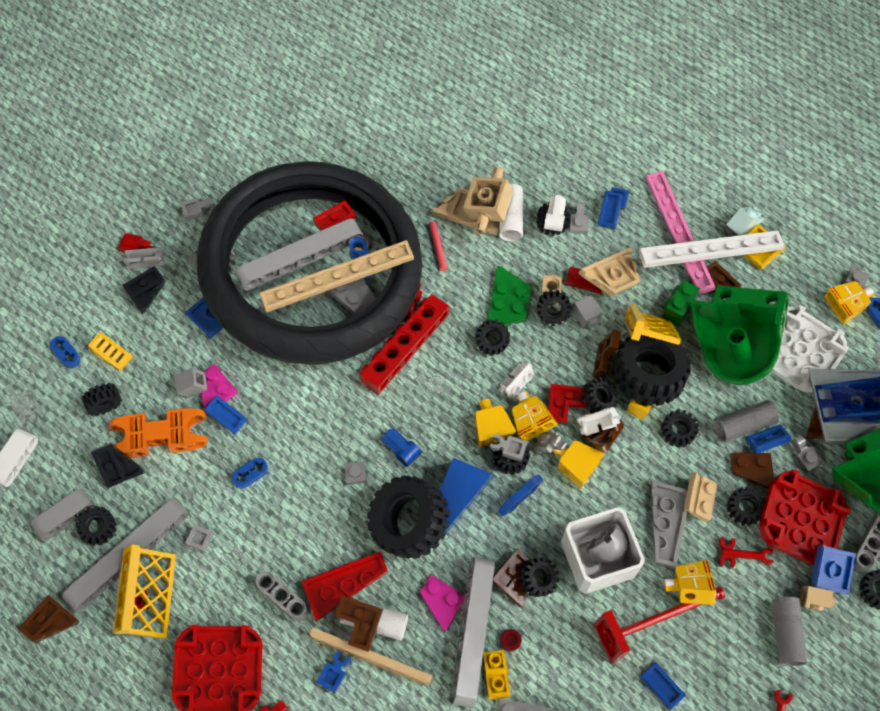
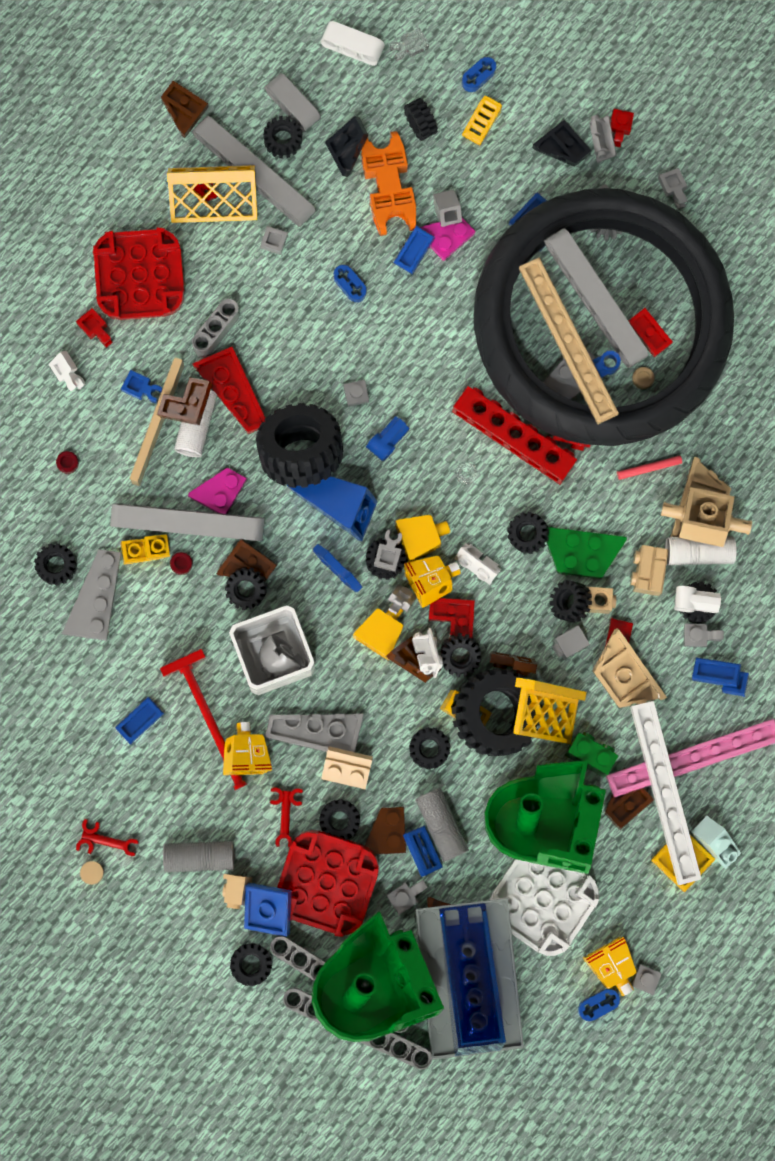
camera: 80 degrees right, 15 degrees up
(526, 250) = (650, 570): none -> tan brick

